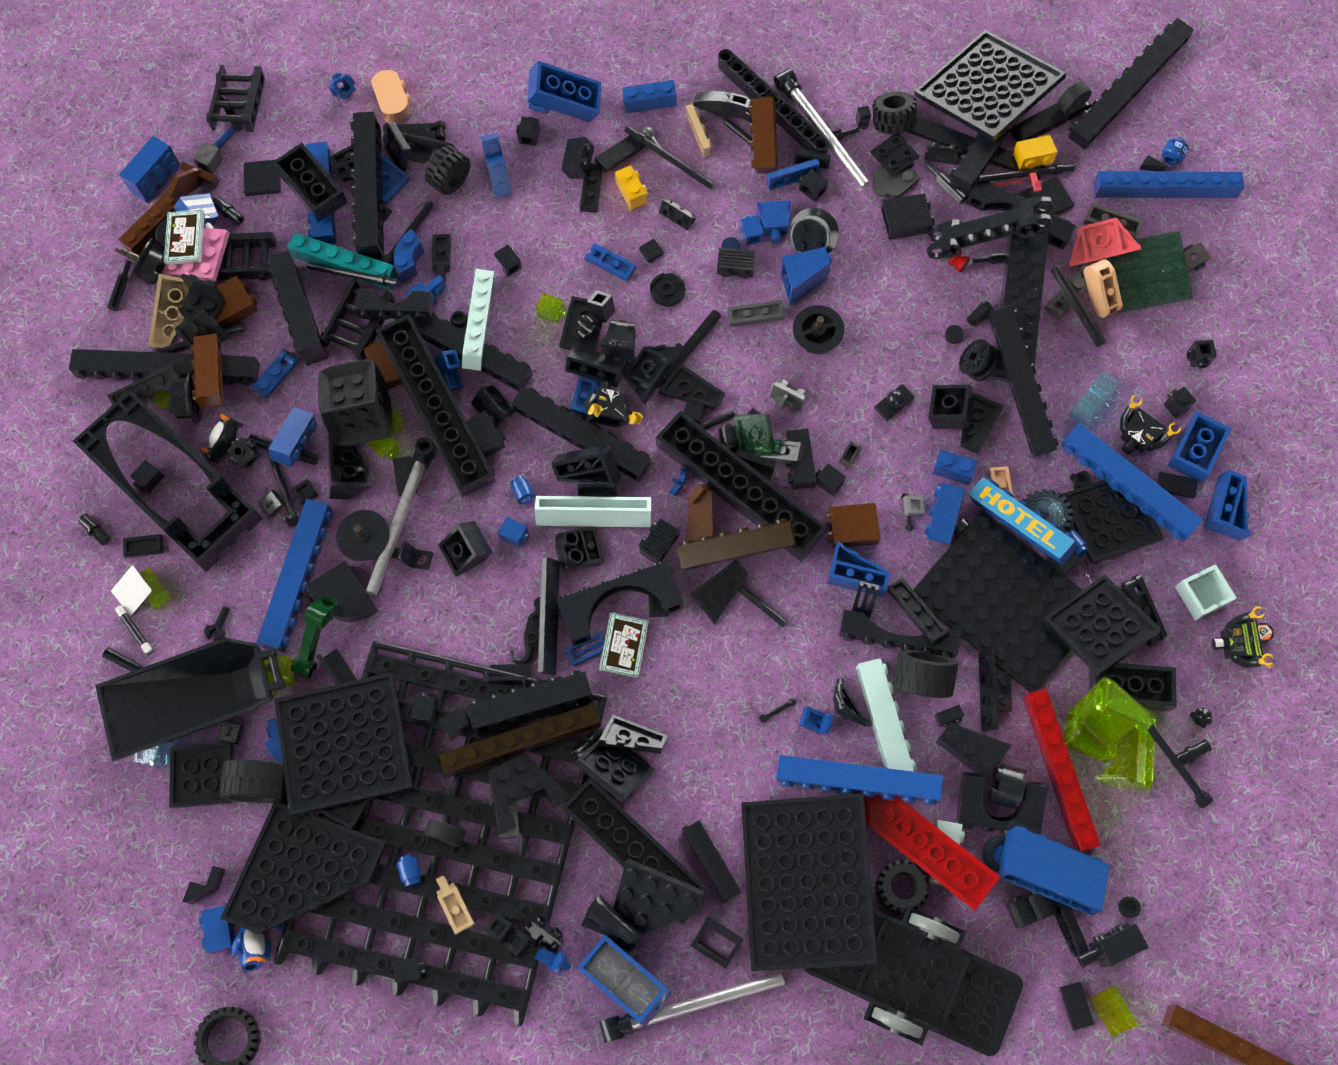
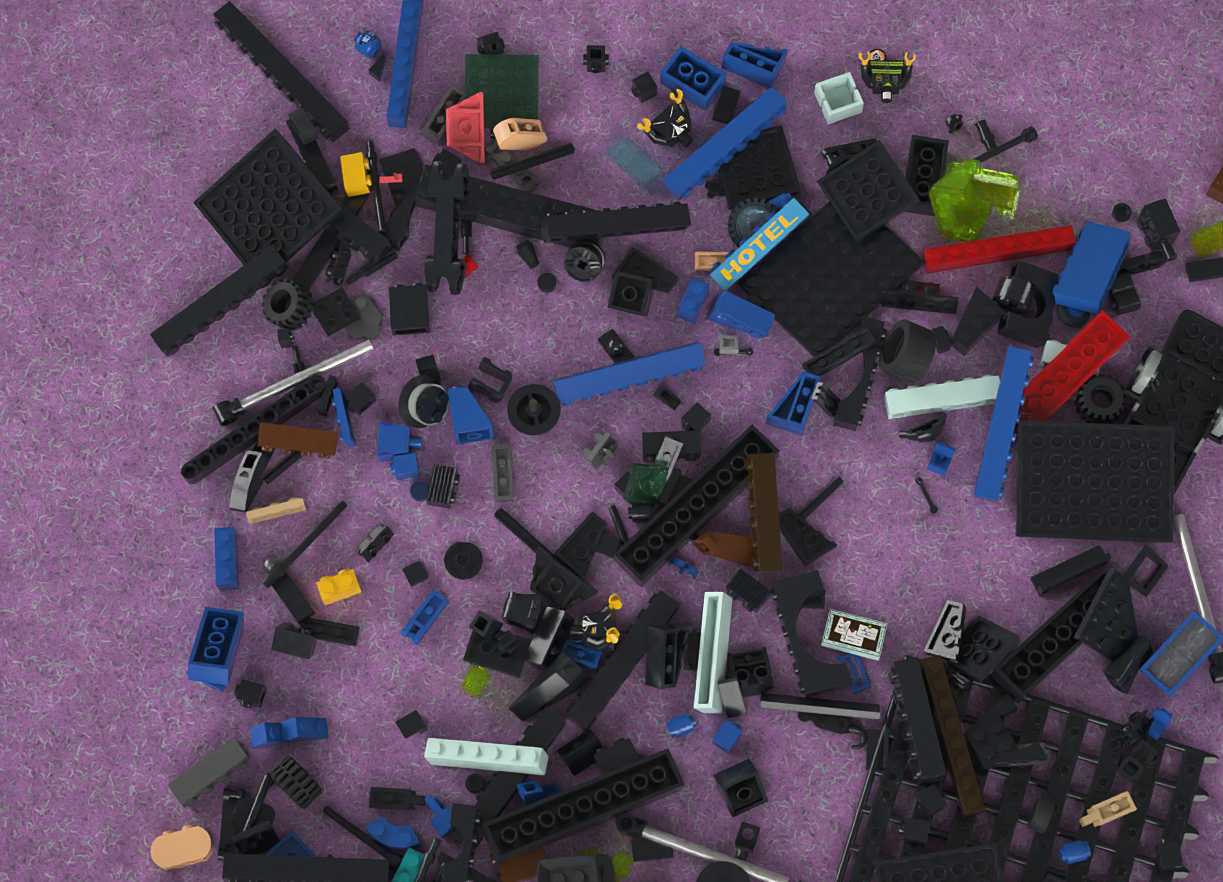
camera: 85 degrees left, 0 degrees up
(457, 107) = (209, 772): none -> dark grey brick
(549, 532) = (732, 697): none -> tile
(553, 374) = (552, 685): none -> black wedge
(838, 303) = (490, 369): none -> black piece
(849, 237) = (428, 366): none -> black brick
(853, 525) = (746, 402): reddish brown brick -> none
(870, 414) = (629, 372): none -> blue brick
(891, 59) = (219, 301): none -> black brick

